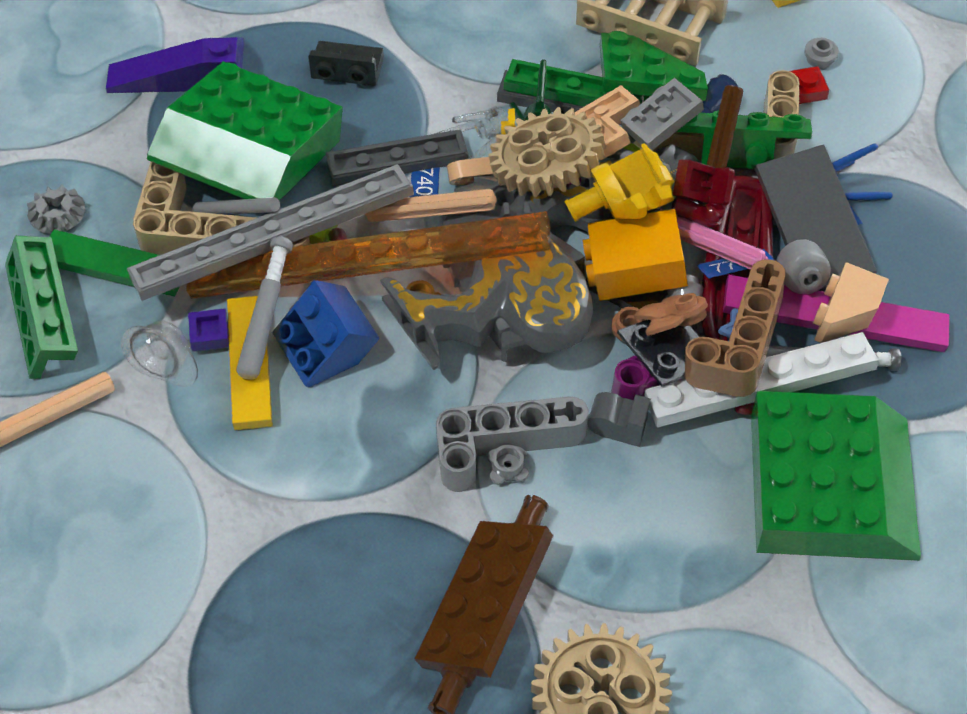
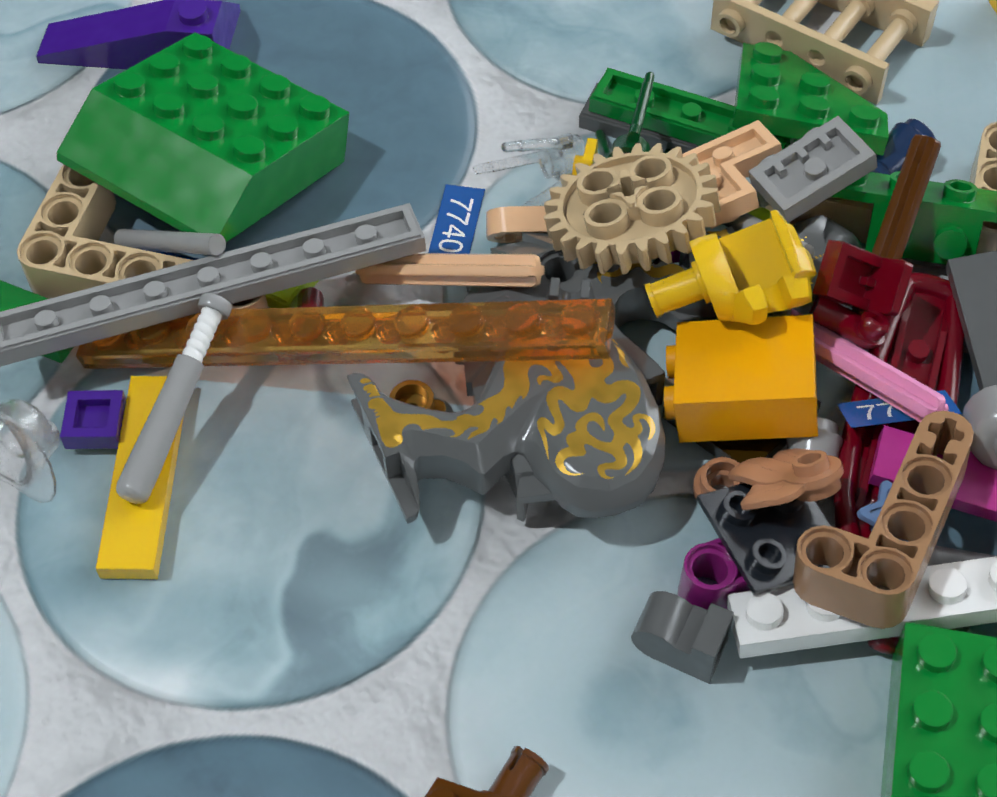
camera: 10 degrees right, 0 degrees up
(324, 333) = (260, 444): blue slope -> none
(346, 63) = (373, 52): pearl dark grey bracket -> none
(409, 153) = (428, 190): dark grey tile -> none
(507, 454) = (492, 672): light grey plate -> none
(568, 430) = (509, 645): light grey beam -> none

